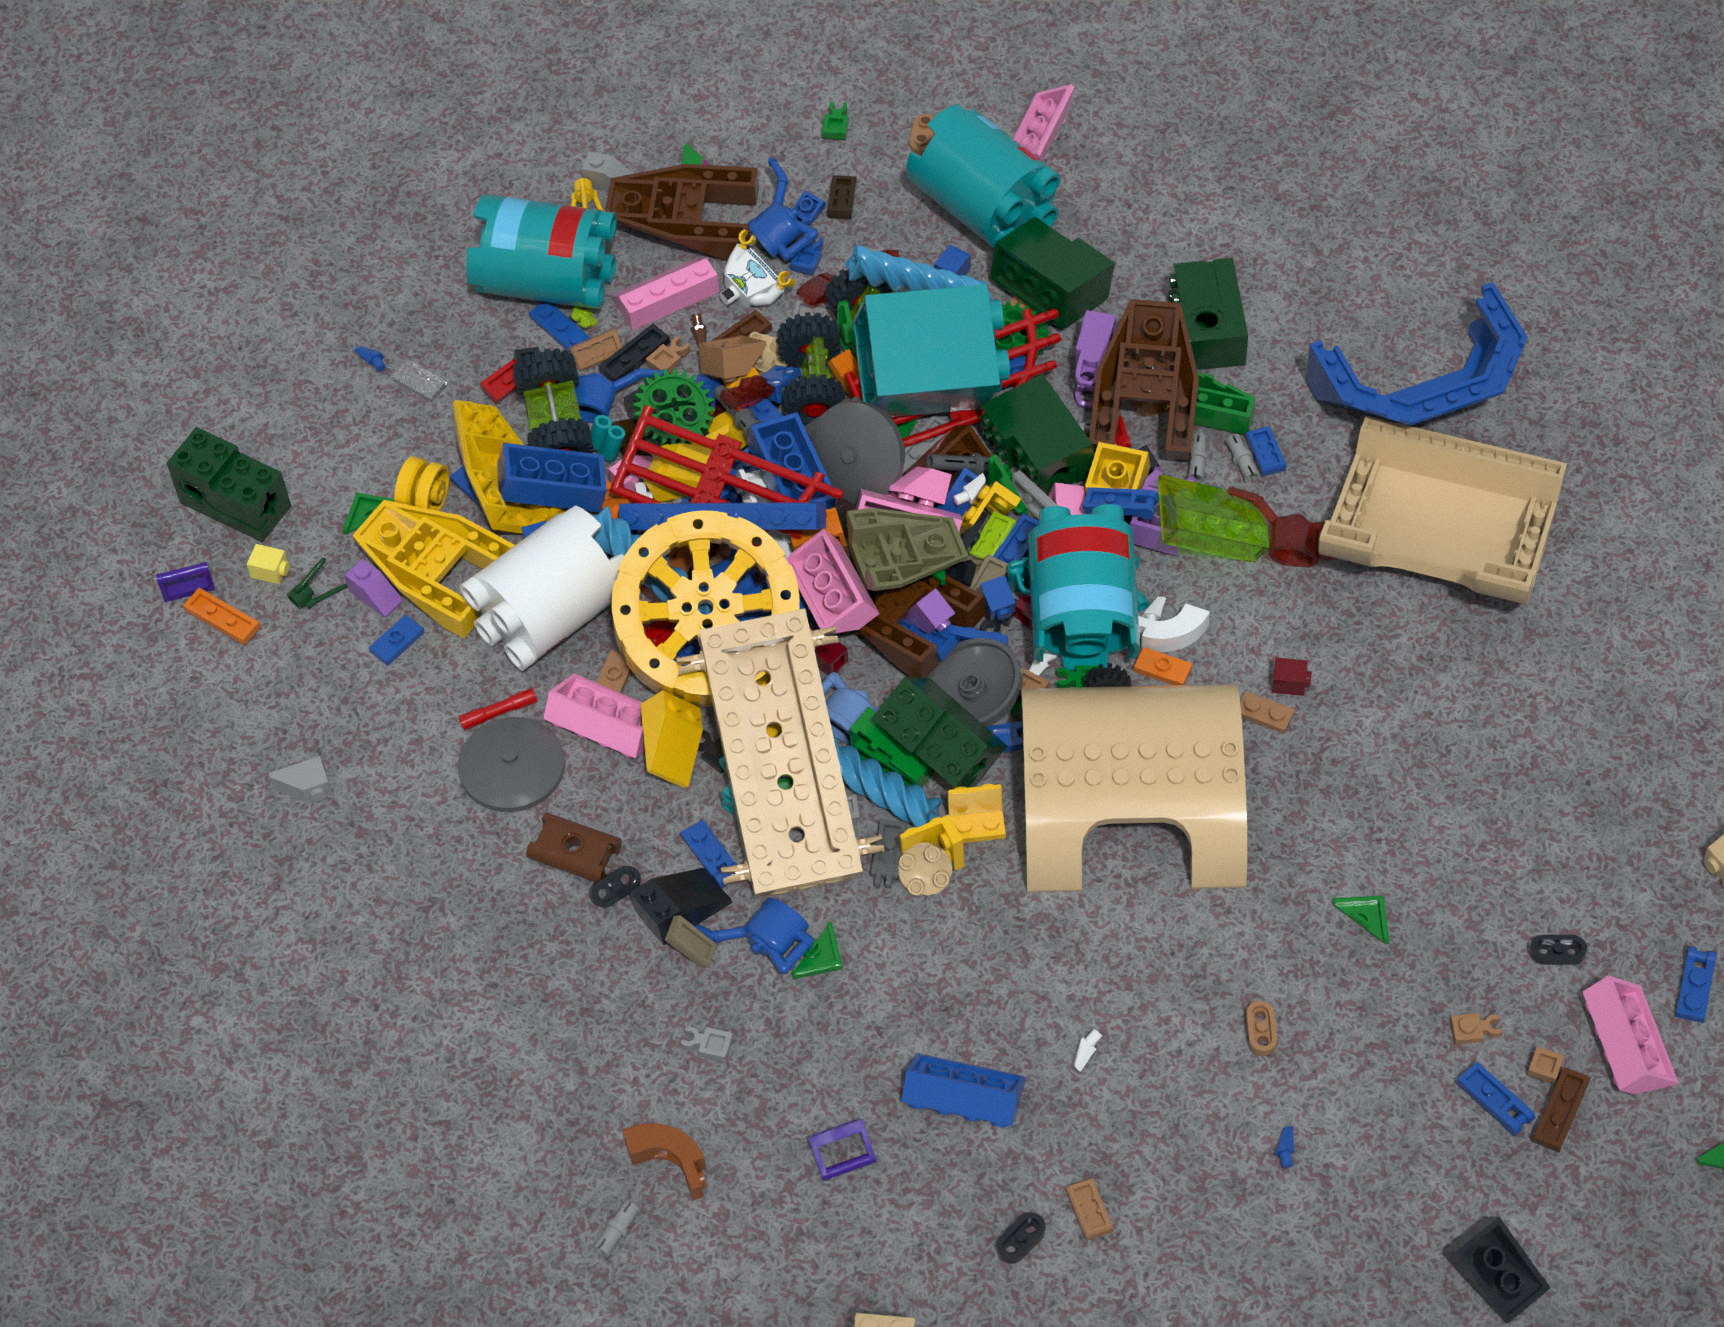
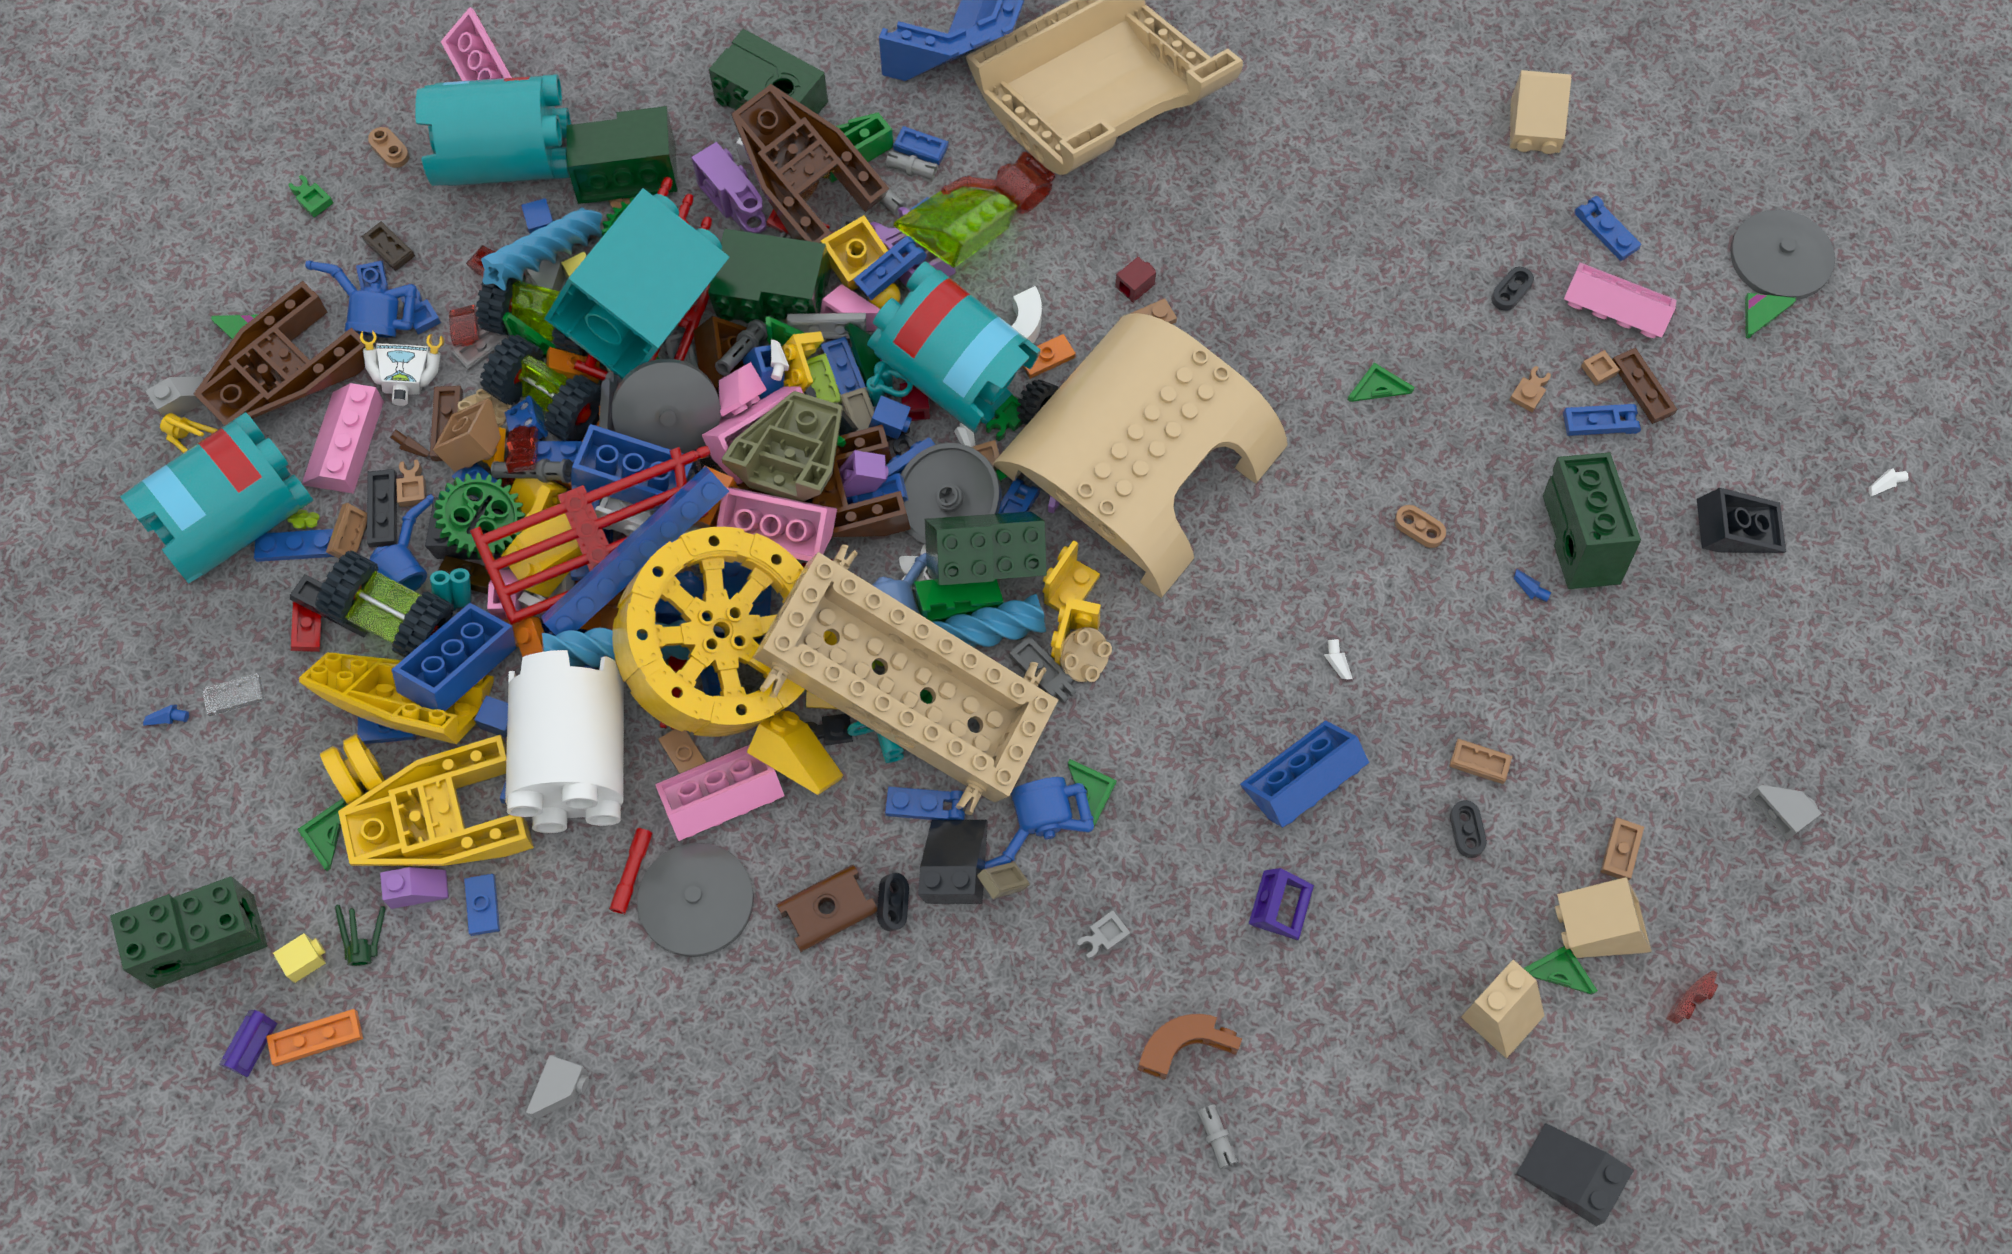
camera: 55 degrees left, 10 degrees up
(1371, 1137) = (1590, 520): none -> dark green piece

